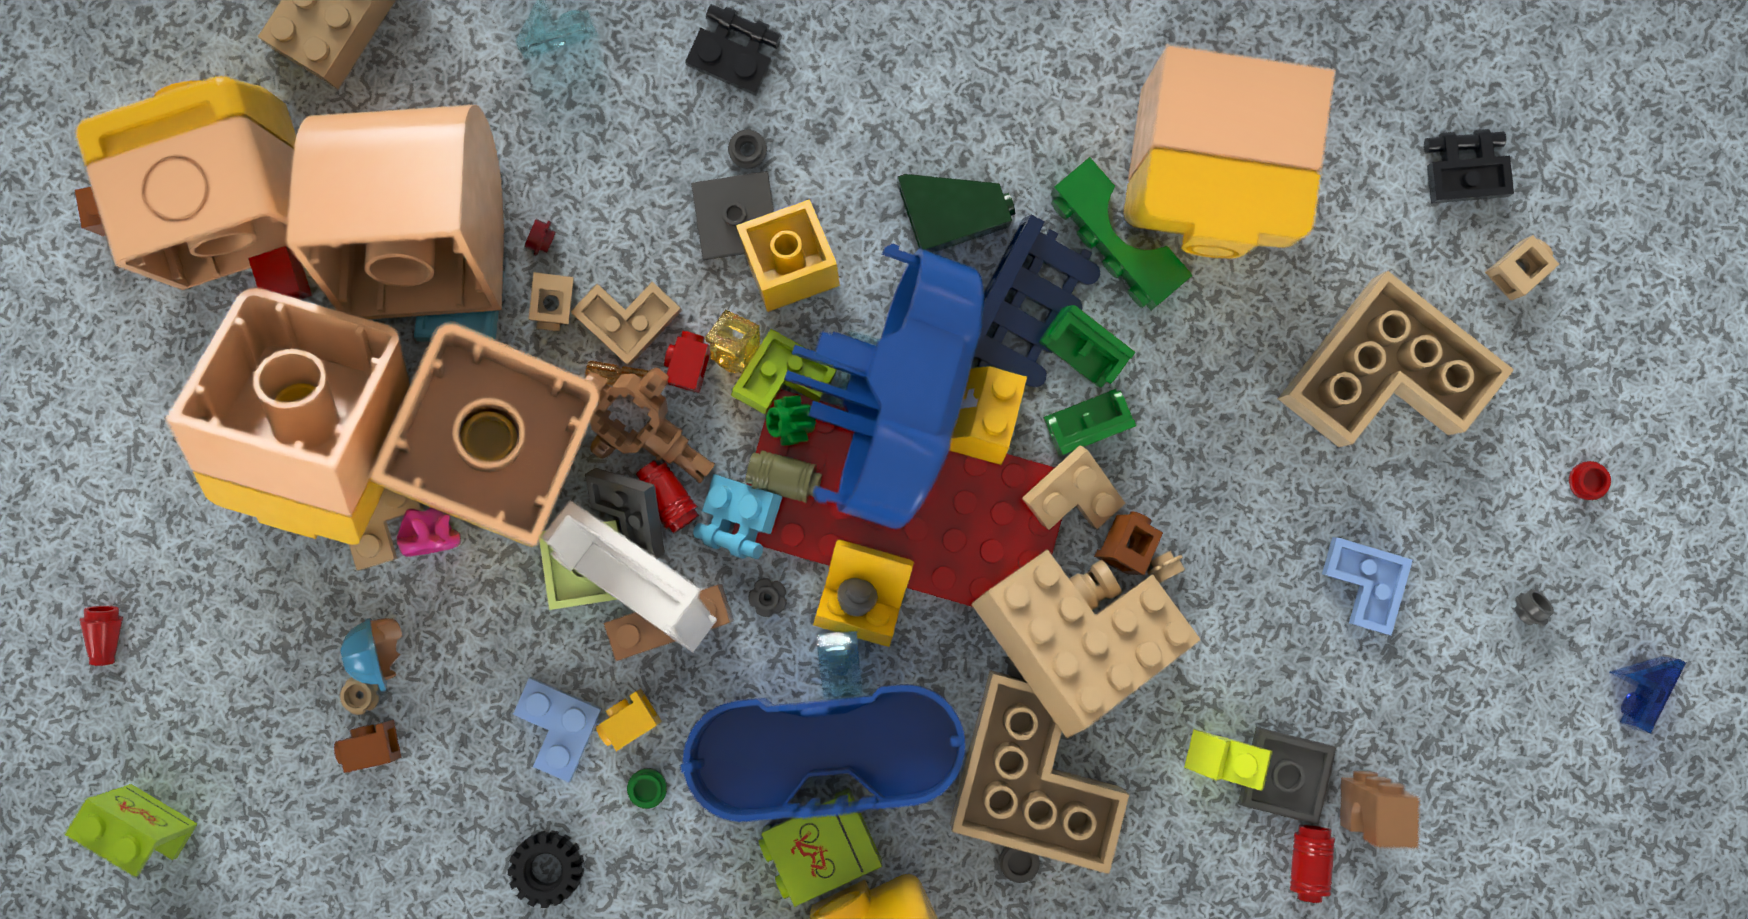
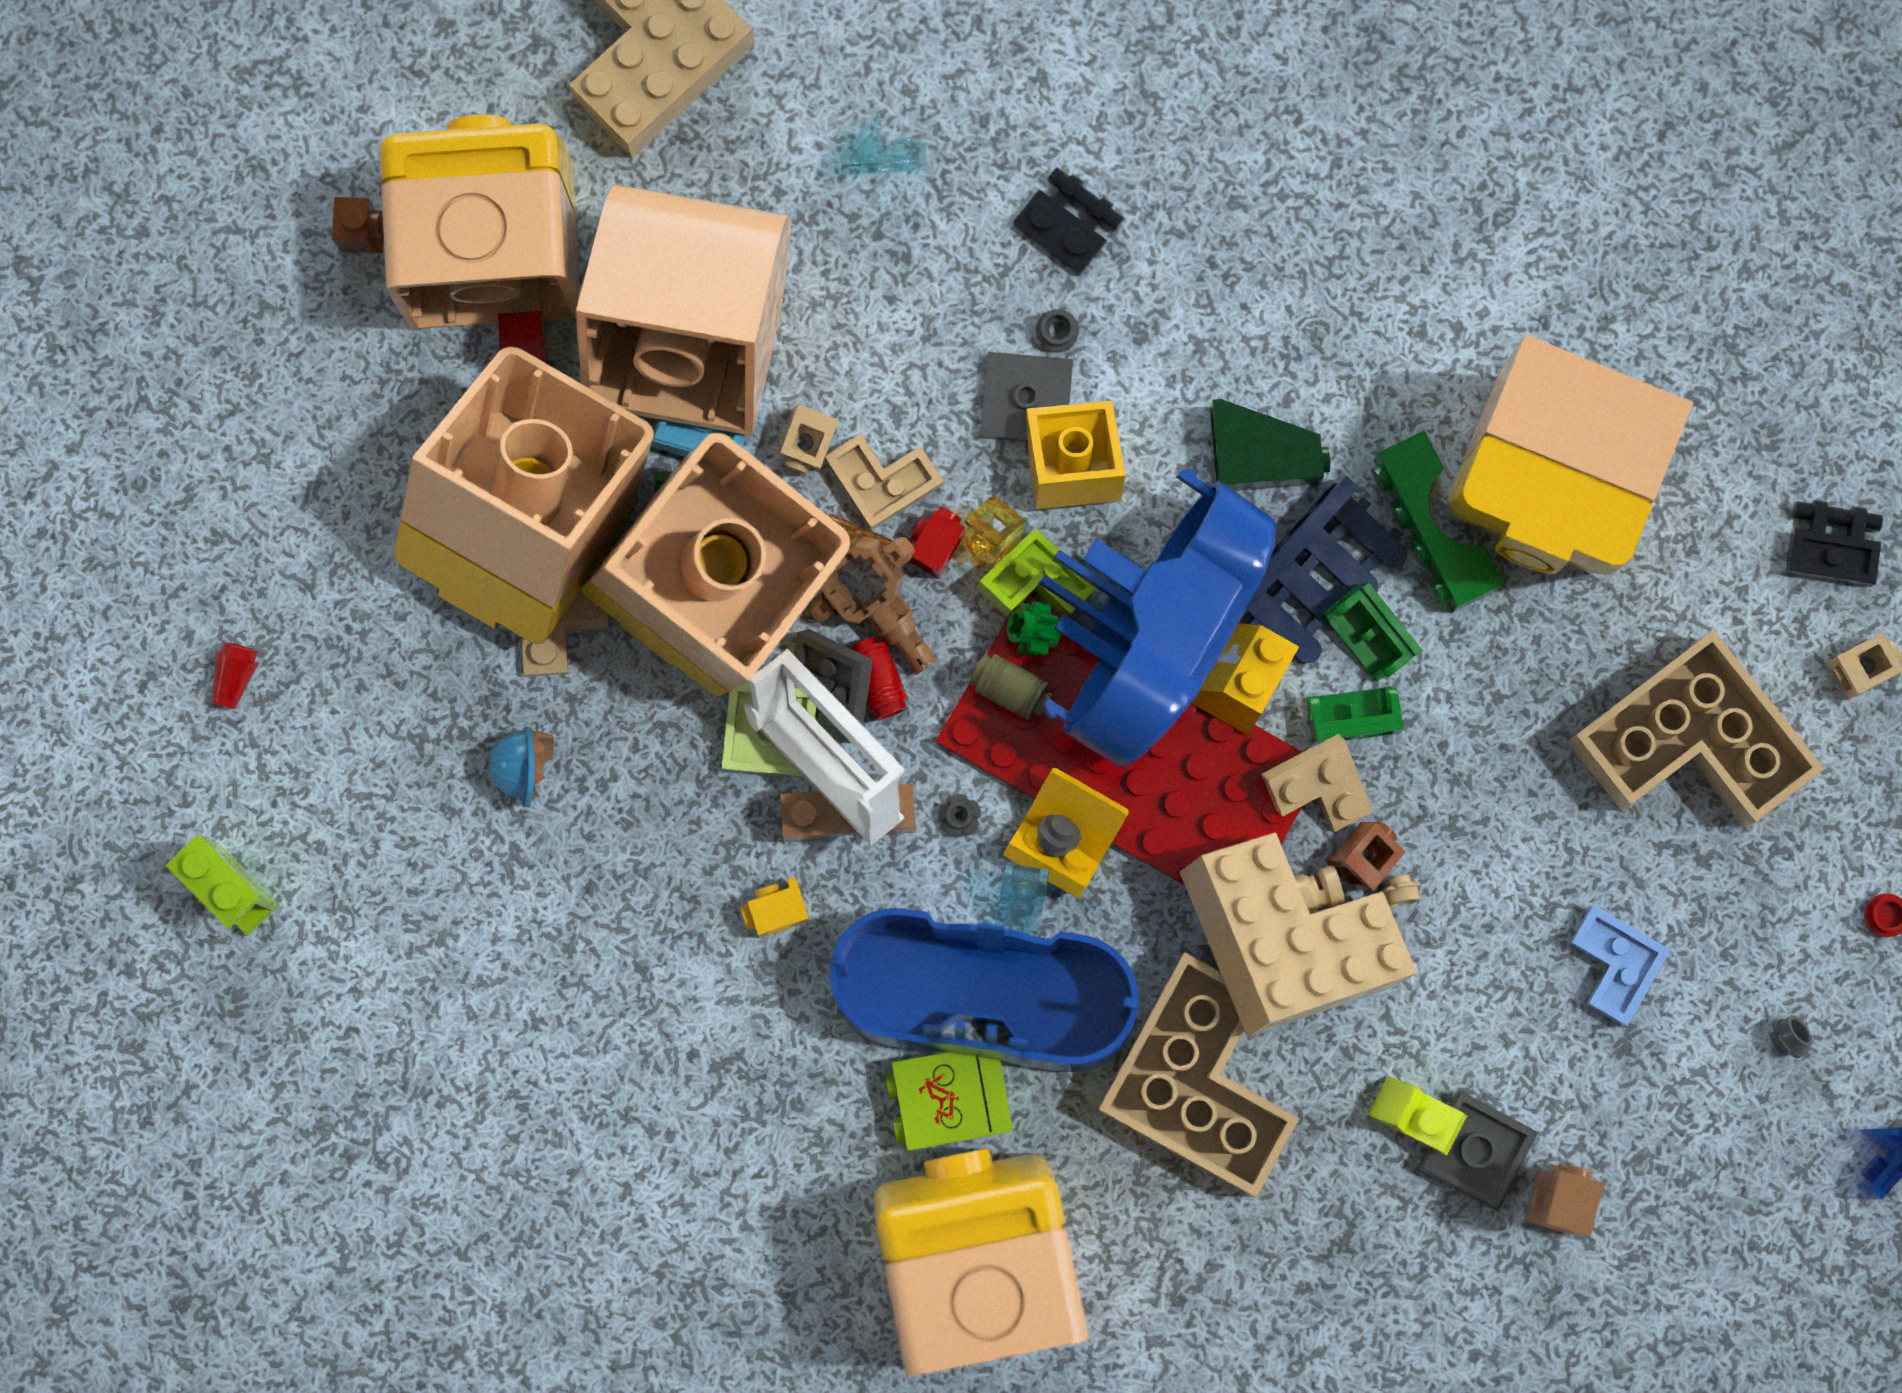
camera: 10 degrees right, 5 degrees down
(352, 703) = (487, 798): tan plate -> none
(368, 747) = (488, 866): dark orange brick -> none
(426, 533) = (611, 653): dark pink piece -> none
(529, 885) = (620, 1040): black tyre -> none
(540, 237) = (810, 369): dark red plate -> none
(568, 722) = (709, 894): light blue plate -> none
(647, 788) = (777, 988): green plate -> none
(740, 504) = (956, 706): medium azure plate -> none
(1018, 864) = (1162, 1171): dark grey tile -> none
(1312, 863) = (1481, 1251): red head -> none

